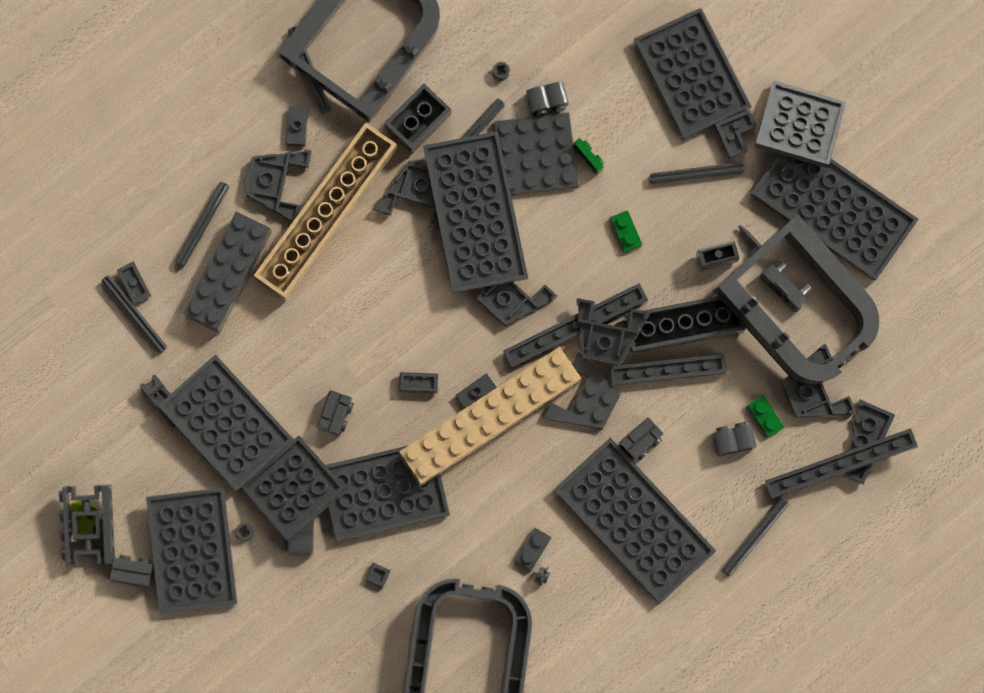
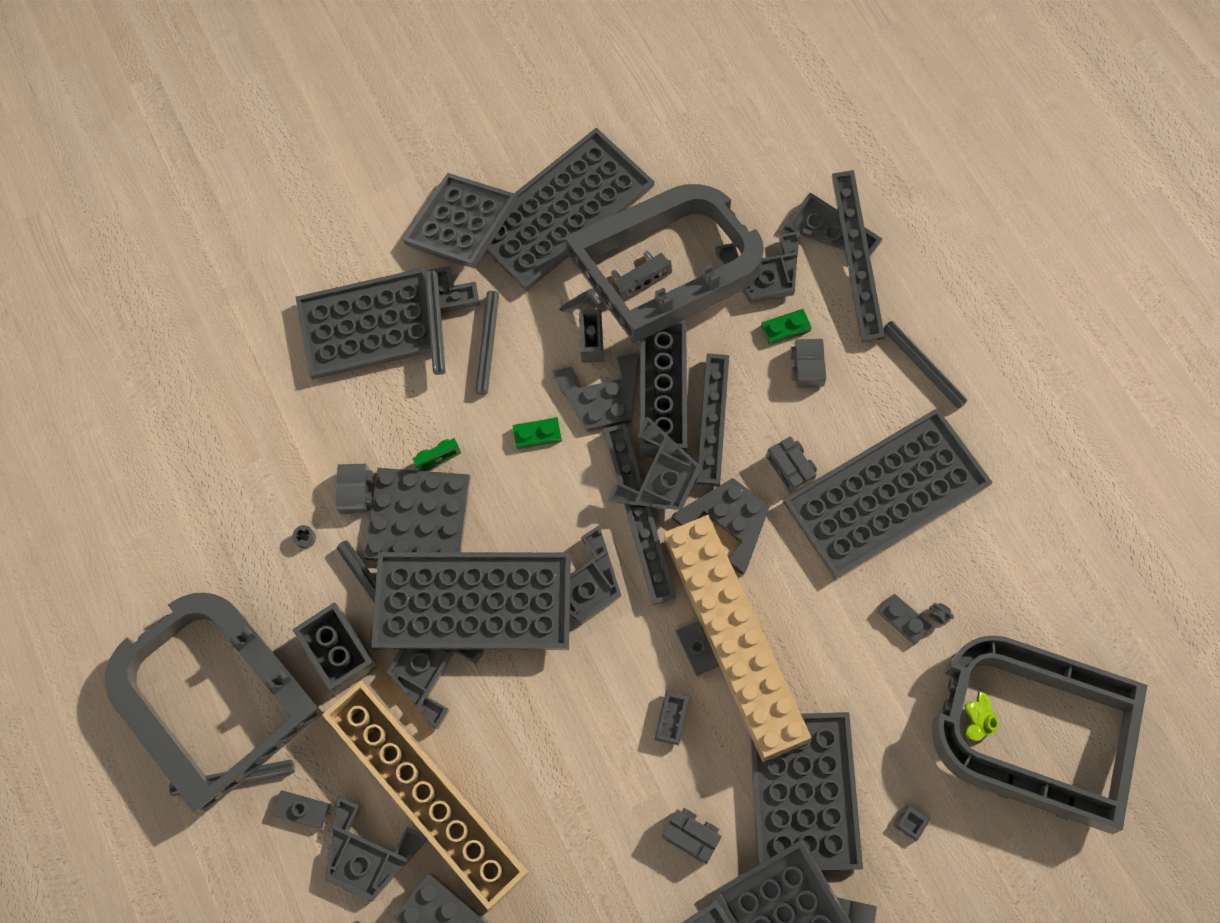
camera: 70 degrees left, 10 degrees down
(465, 613) = (982, 718): none -> lime plate
(663, 278) = (602, 403): none -> dark grey wing
(701, 126) = (435, 323): none -> dark grey axle

